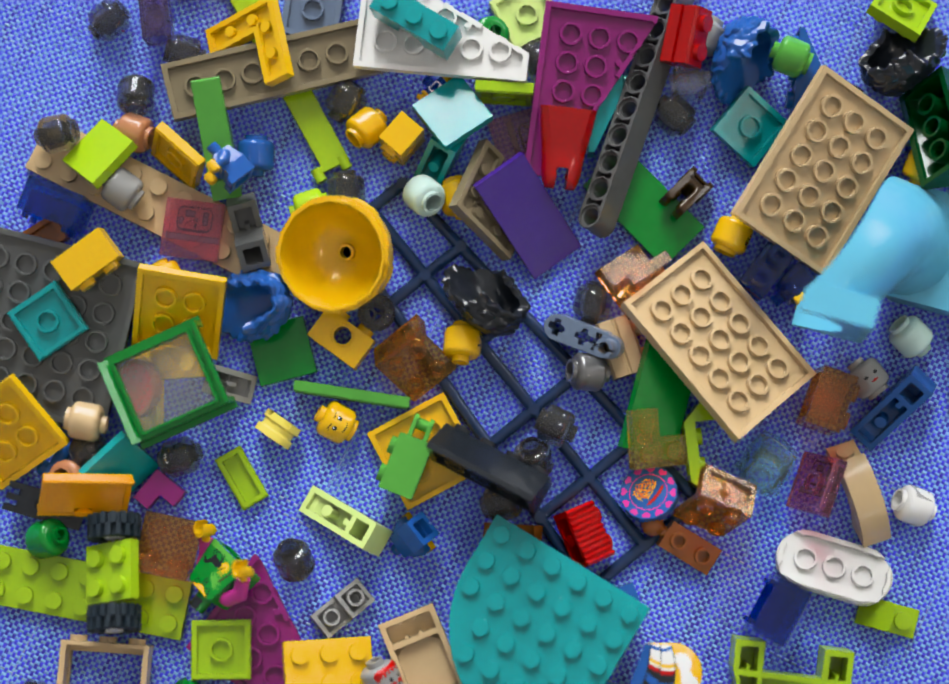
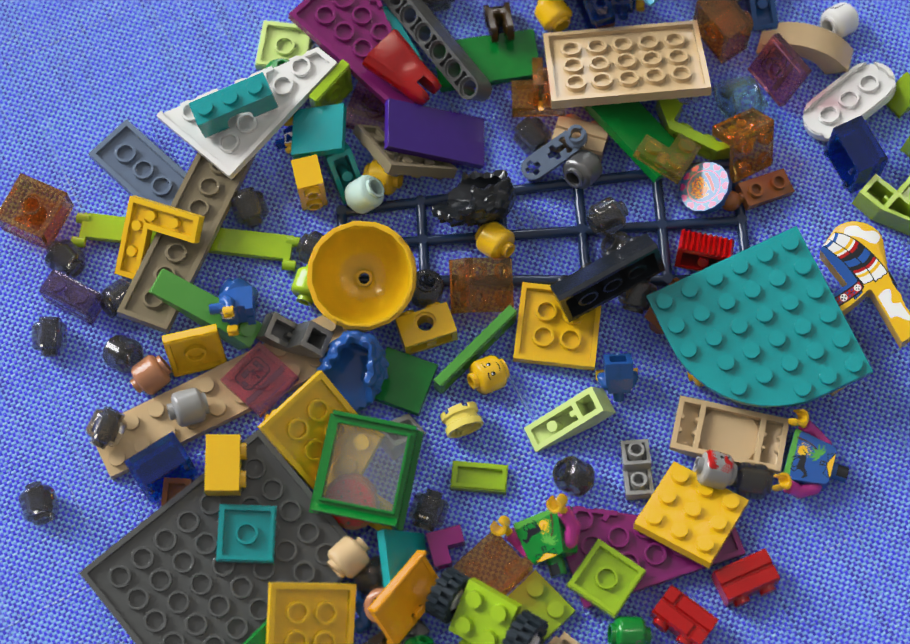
camera: 50 degrees left, 15 degrees down
(100, 153) = (148, 403): lime tile -> none
(365, 127) = (280, 206): yellow head -> none
(406, 460) = (557, 337): bright green brick -> none

